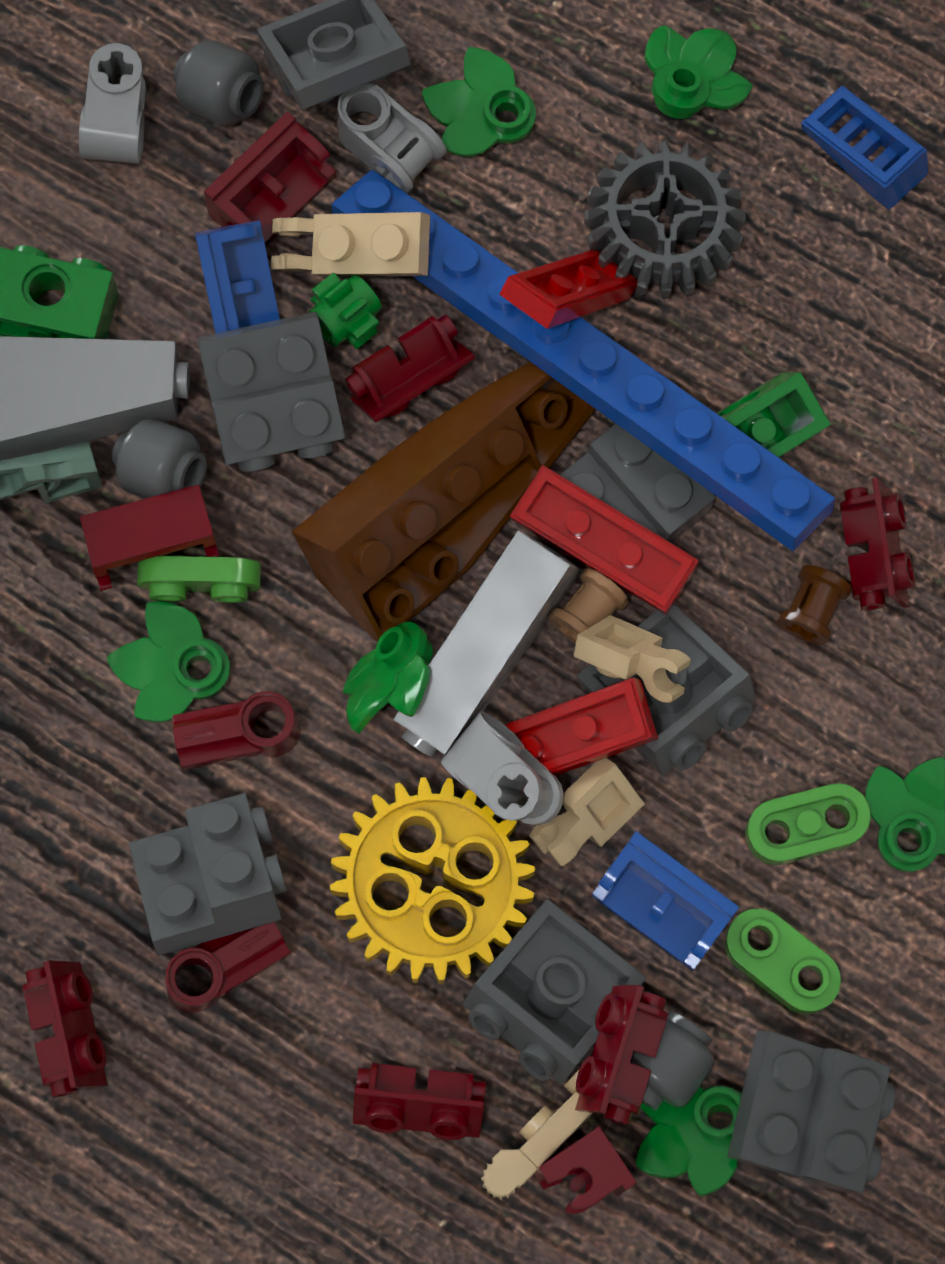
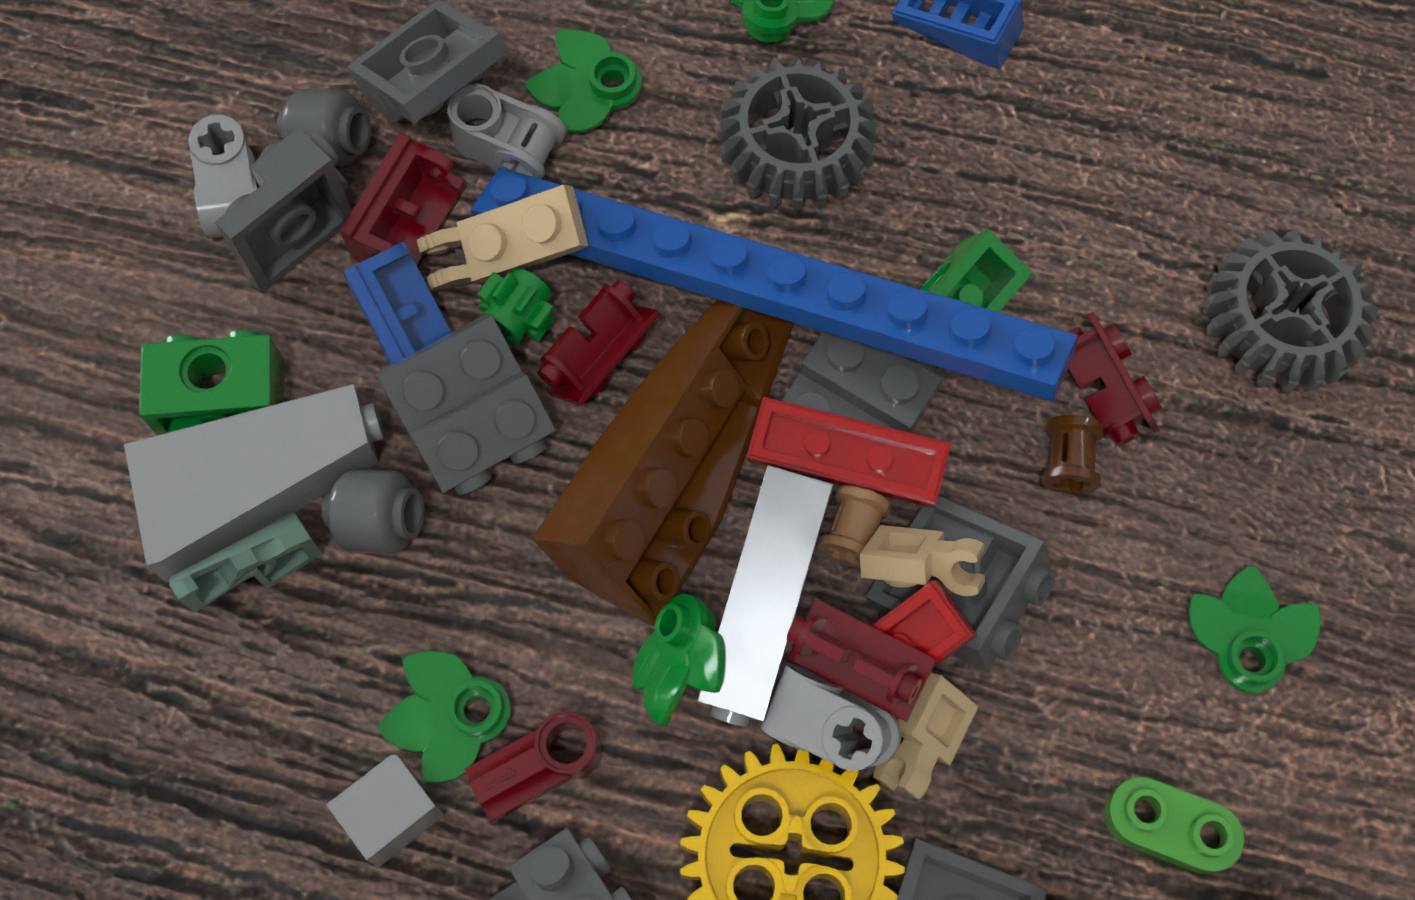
camera: 15 degrees left, 5 degrees down
(94, 729) = (385, 810): none -> light grey panel
(147, 530) = (381, 584): dark red hinge -> none
(167, 161) = (292, 211): none -> dark grey plate
(224, 577) = (422, 623): bright green plate -> none
(545, 726) = (860, 658): none -> dark red hinge
(567, 289) = (730, 218): red tile -> none
(664, 901) = (1037, 802): blue hinge -> none
(805, 824) = (1145, 677): bright green plate -> none

